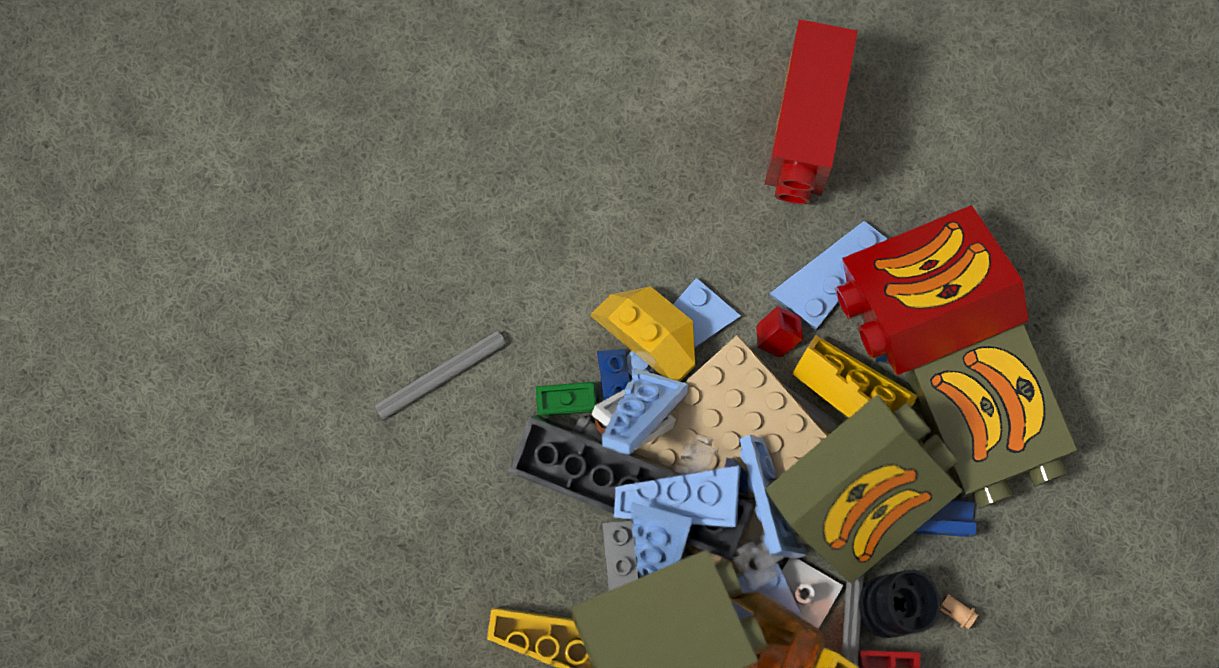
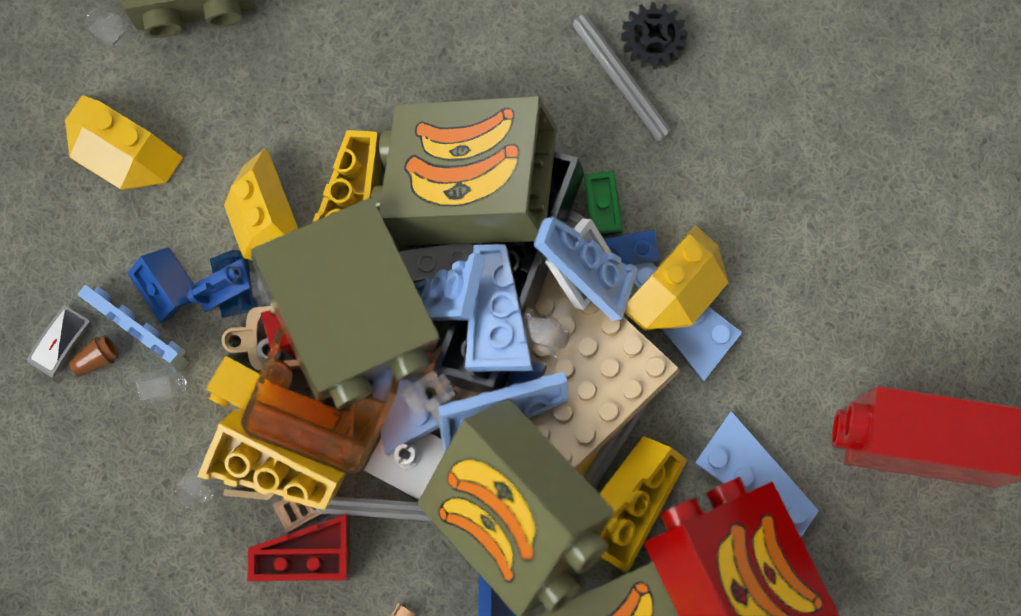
camera: 90 degrees right, 0 degrees up
(411, 331) = (650, 22): none -> black gear
(540, 522) = (467, 171): none -> olive brick
(779, 331) = (689, 422): red panel -> none
(899, 604) = (397, 572): black wheel -> none

